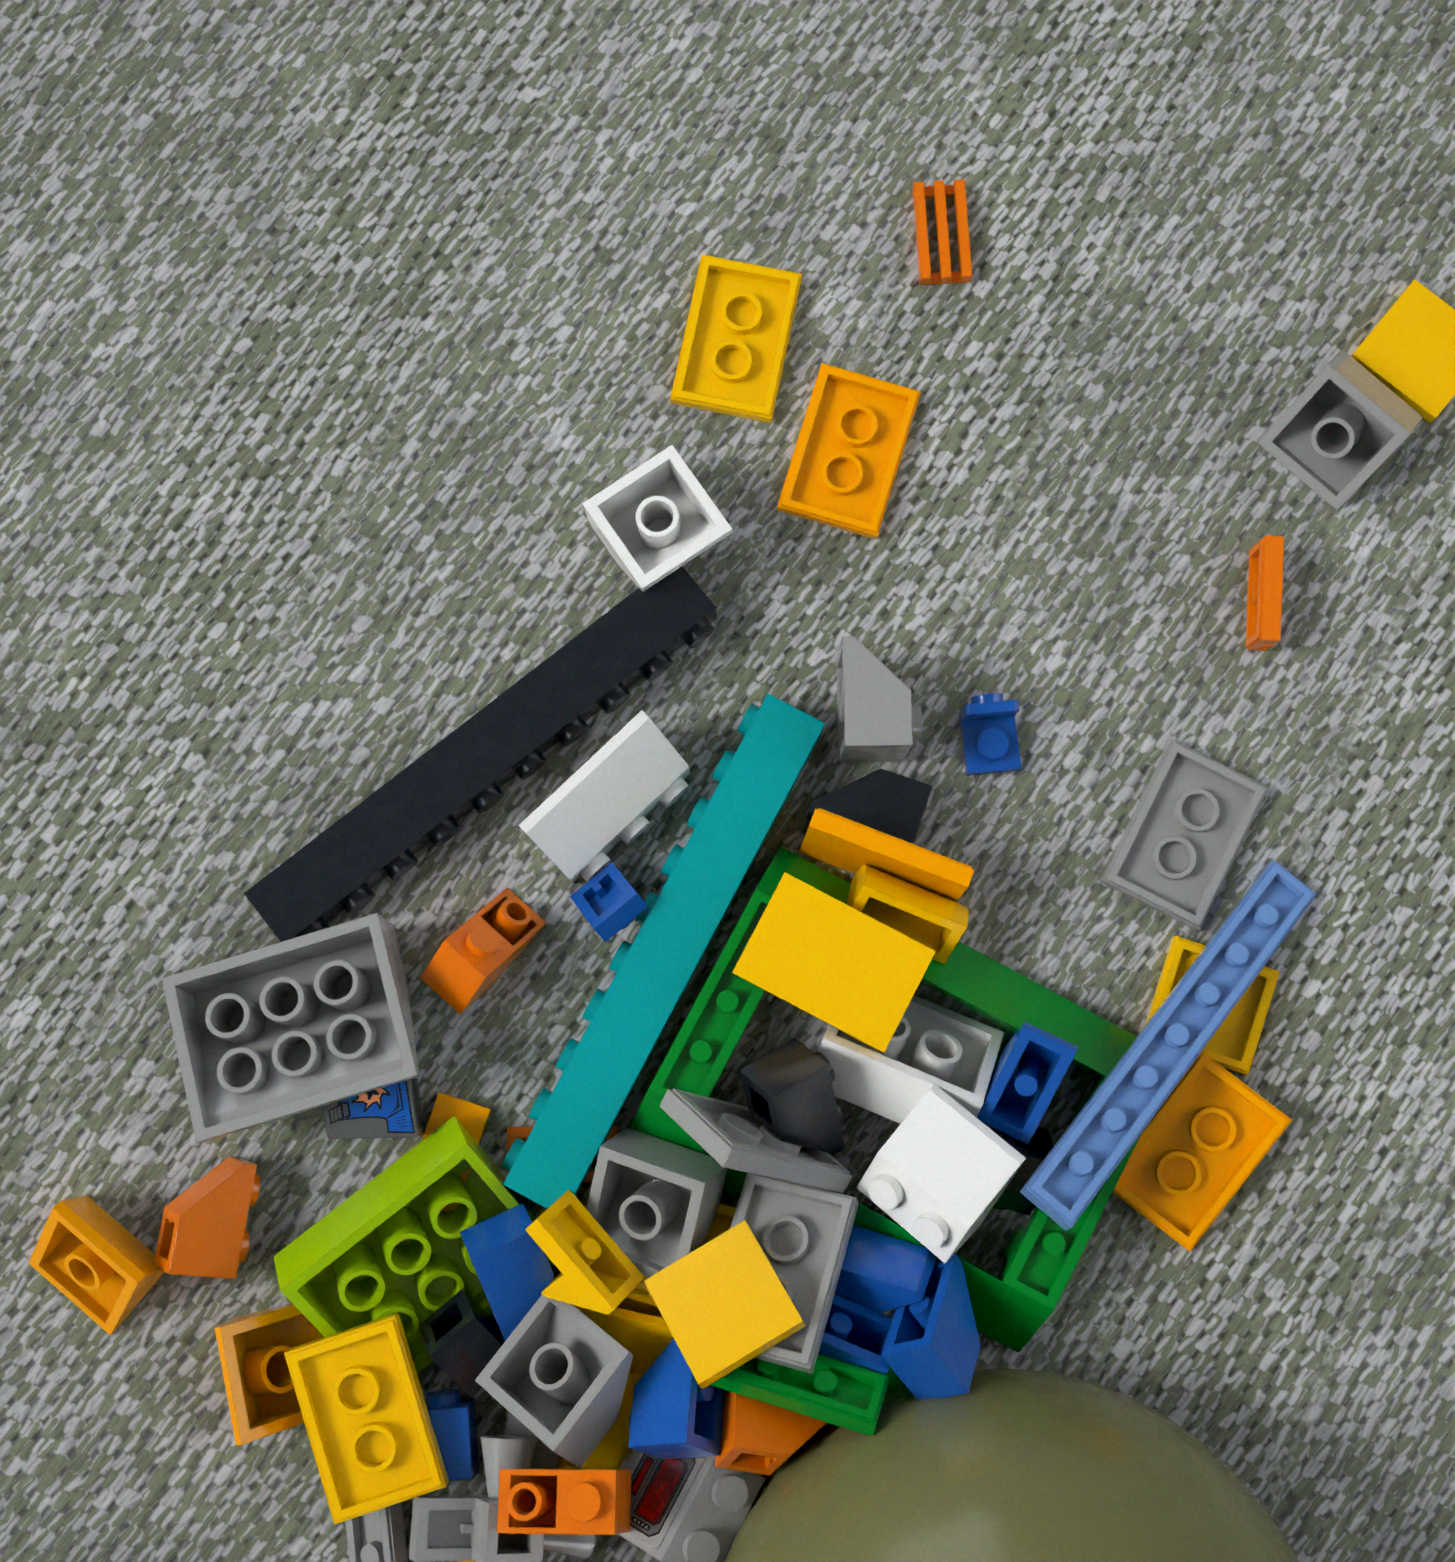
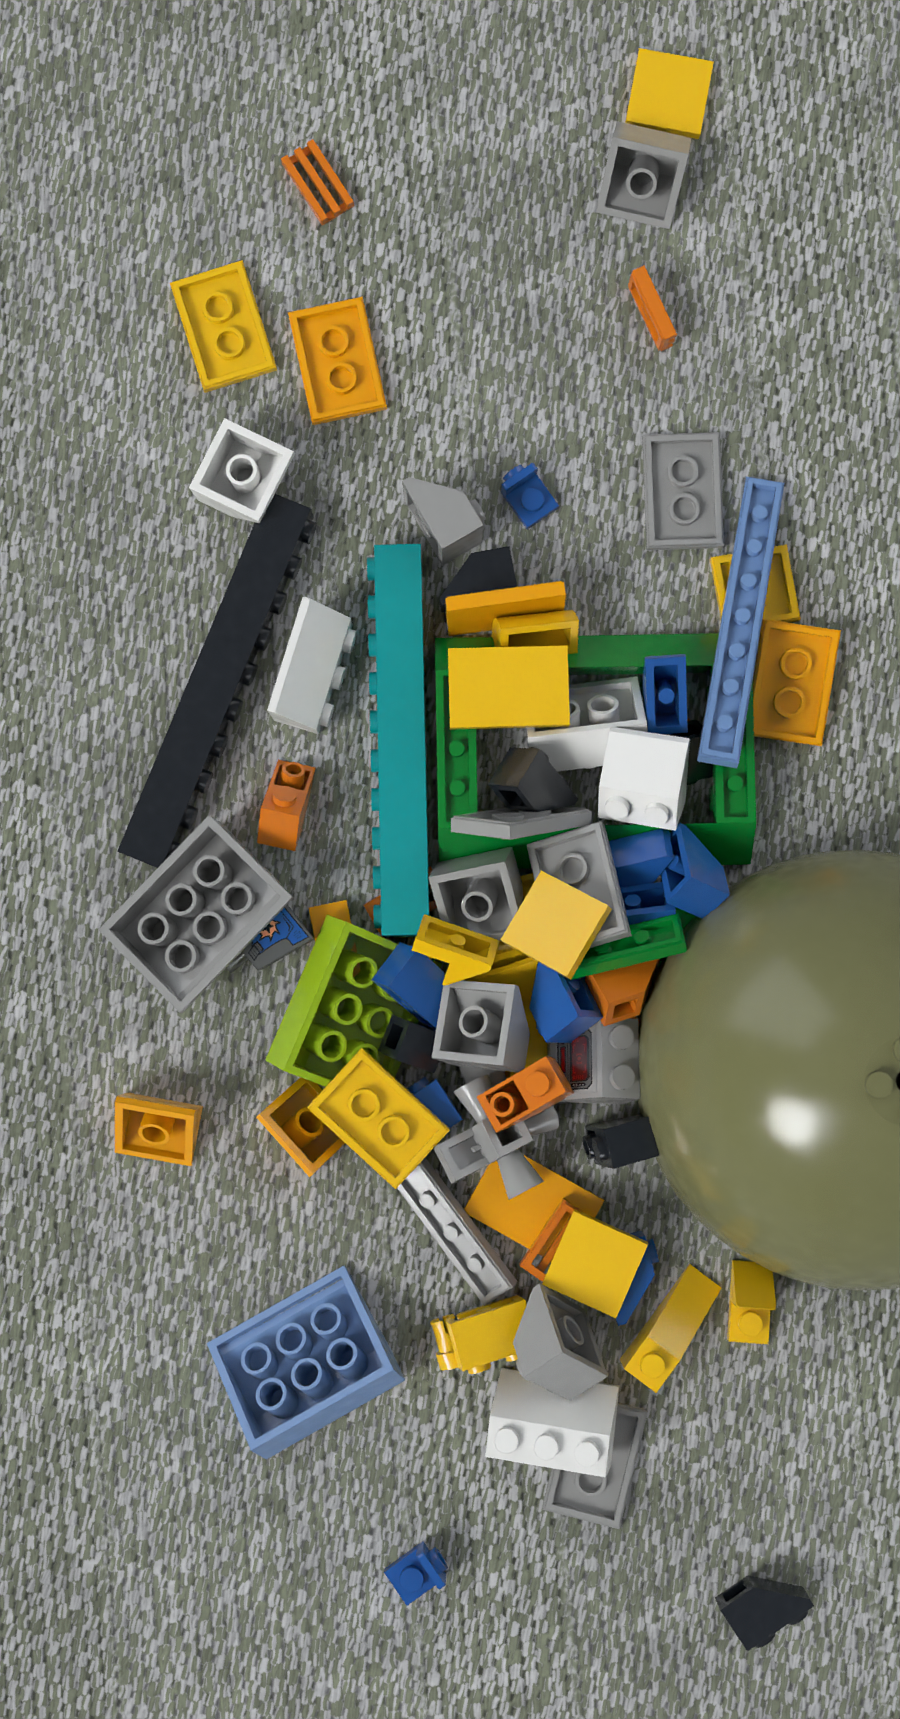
camera: 30 degrees left, 5 degrees up
(206, 1224) = (213, 1062): orange slope -> none
(608, 902) = (348, 730): blue bracket -> none

